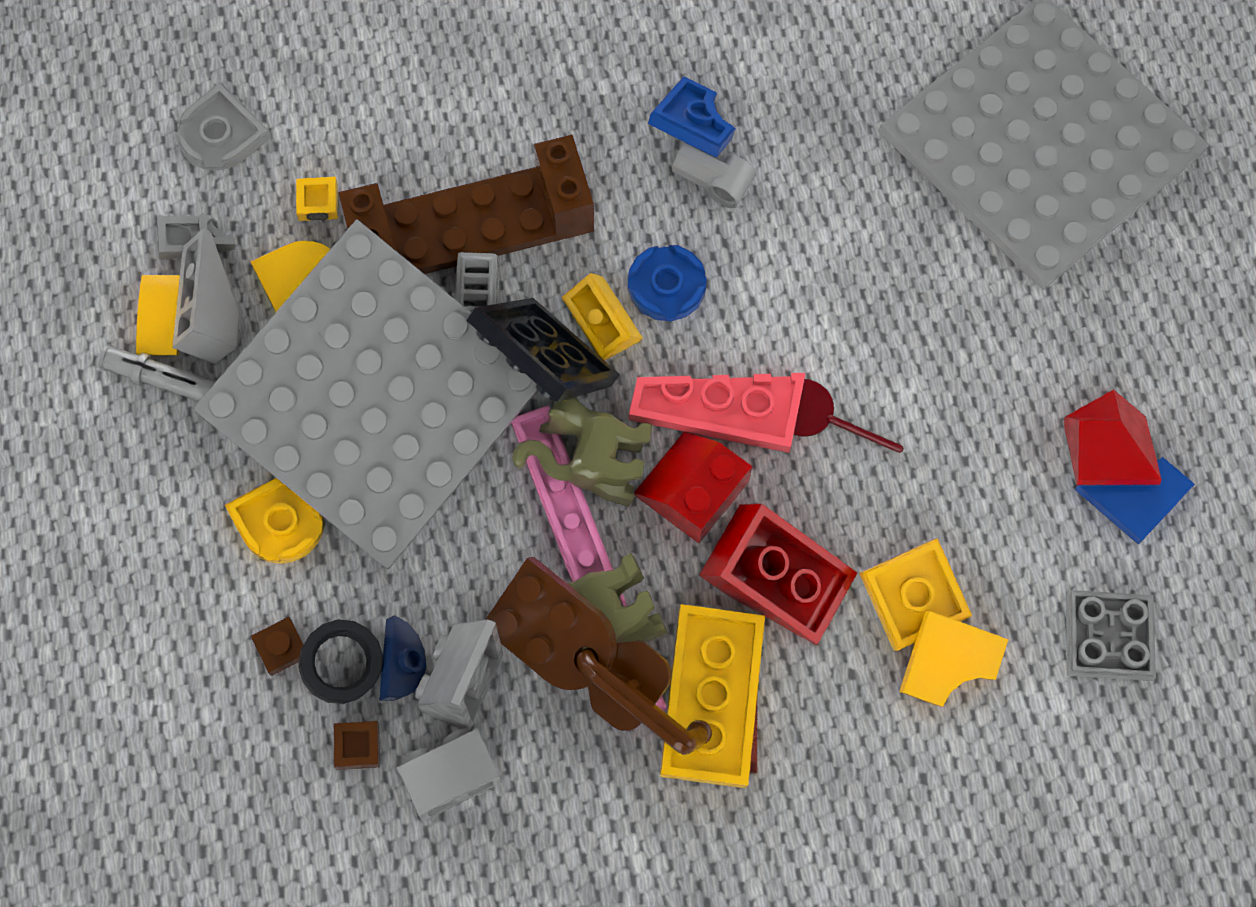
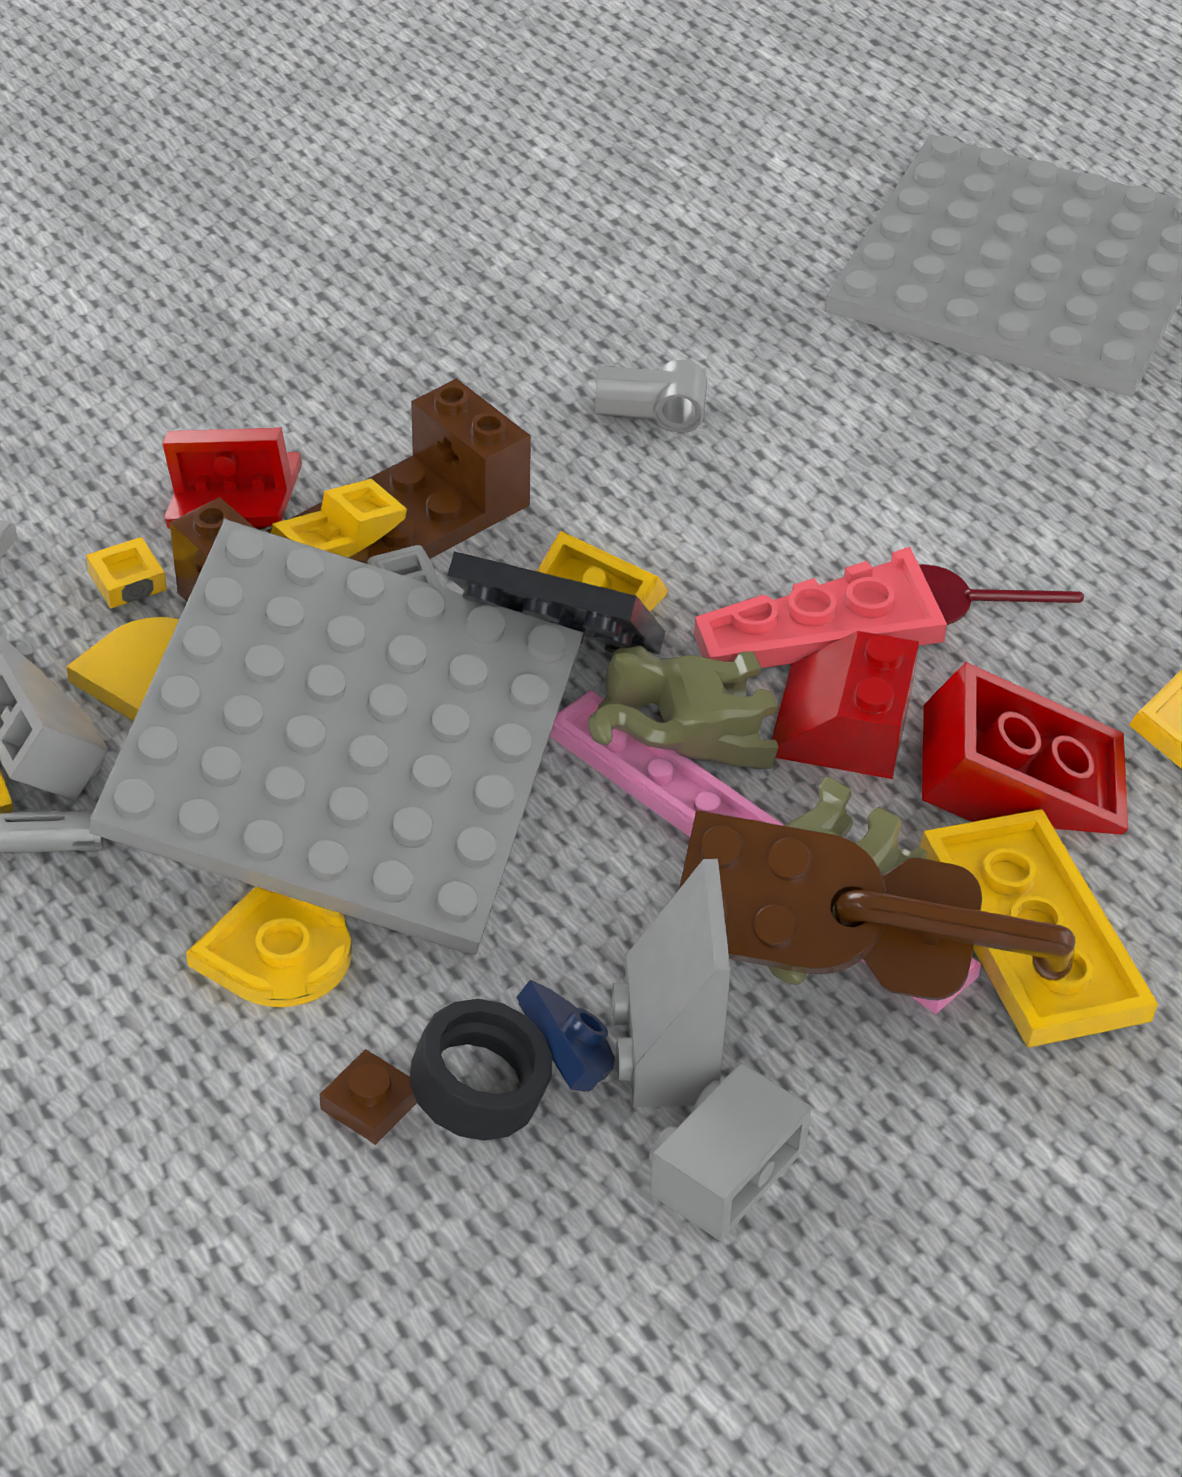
camera: 25 degrees left, 25 degrees down
(356, 745) = (566, 1170): reddish brown plate -> none
(407, 153) = (238, 465): none -> red bracket
(452, 221) = (348, 519): none -> yellow slope
(667, 296) = (663, 537): blue tile -> none
(691, 117) = (593, 344): blue tile -> none

